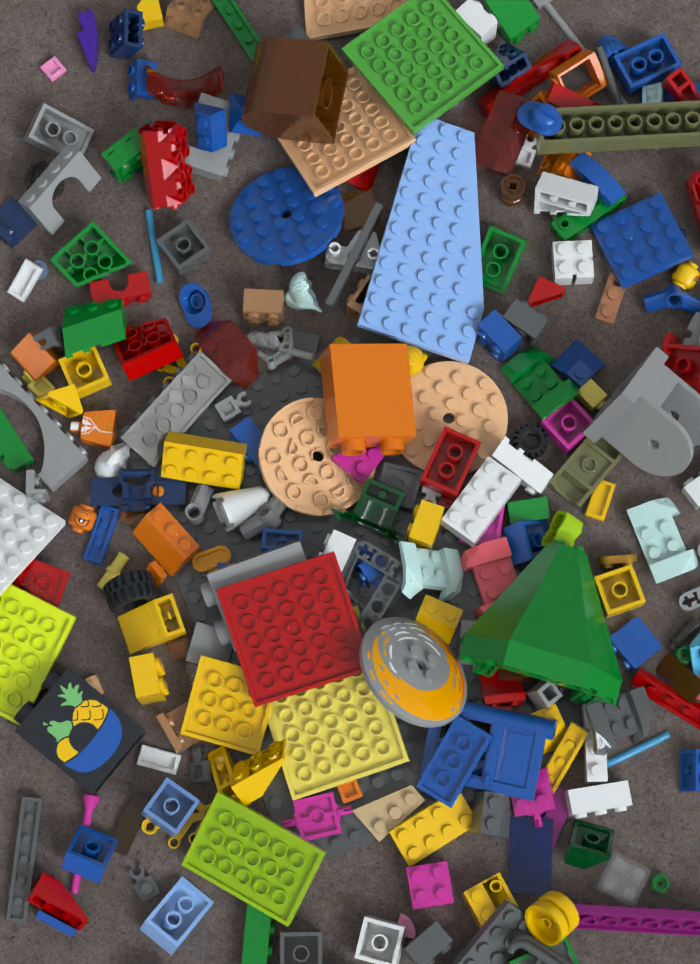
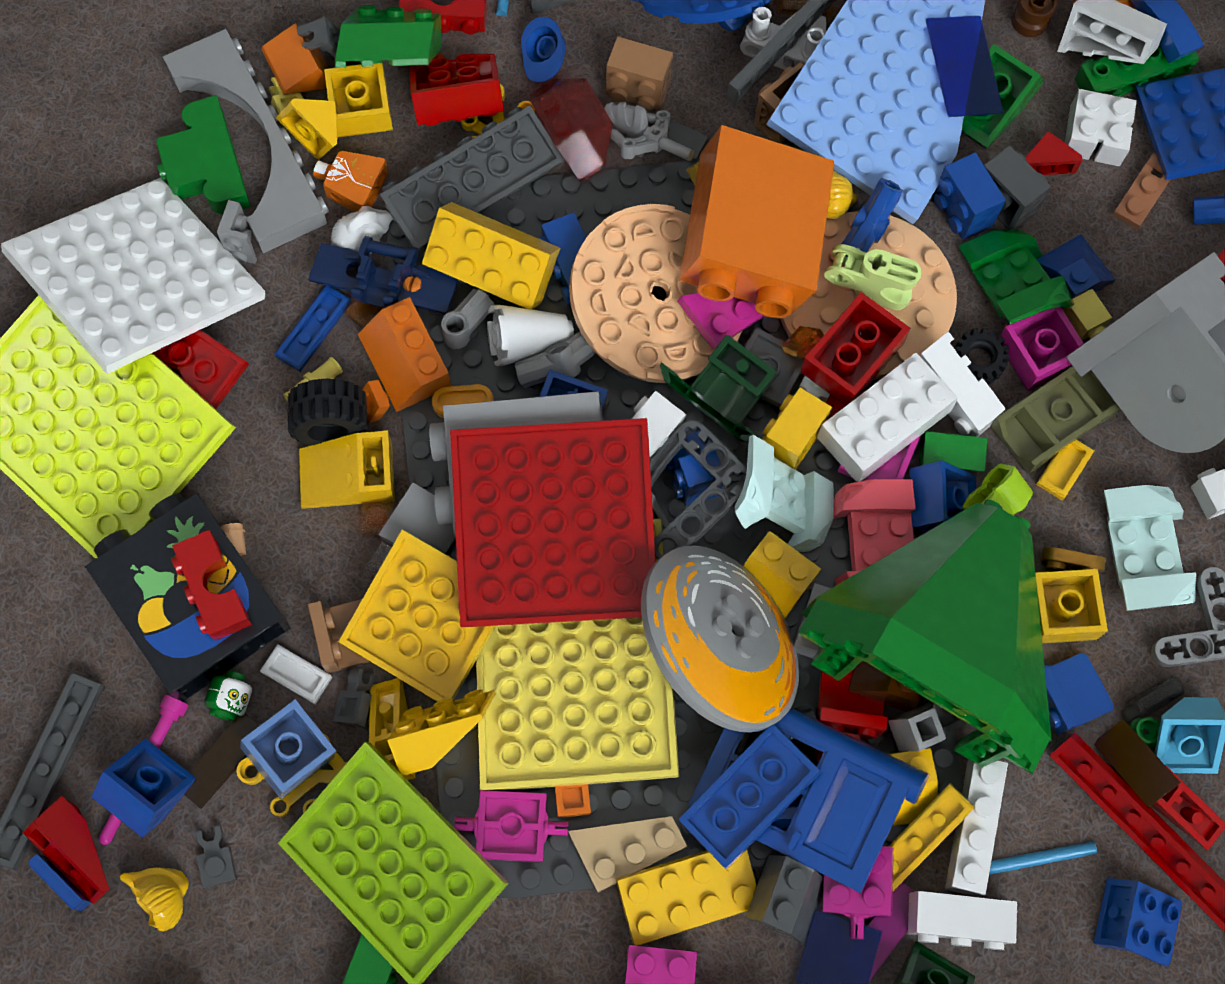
camera: 10 degrees right, 5 degrees down
(82, 518) = (291, 296): orange head -> none
(106, 738) = (198, 560): none -> red arch
(118, 913) = (159, 894): none -> yellow hair
(122, 784) = (228, 696): none -> head
(148, 679) = (313, 544): yellow brick -> none
(176, 915) = (247, 922): light blue slope -> none
(230, 408) = (551, 199): light grey plate -> none
(300, 293) = (695, 73): light aqua hair -> none
(416, 465) = (802, 341): none -> clear orange plate
(439, 374) = (874, 216): none -> blue piece
(462, 413) = (877, 274): none -> yellowish green piece
(474, 247) = (964, 66): none -> clear blue piece
(629, 717) = (1027, 802): dark grey piece -> none

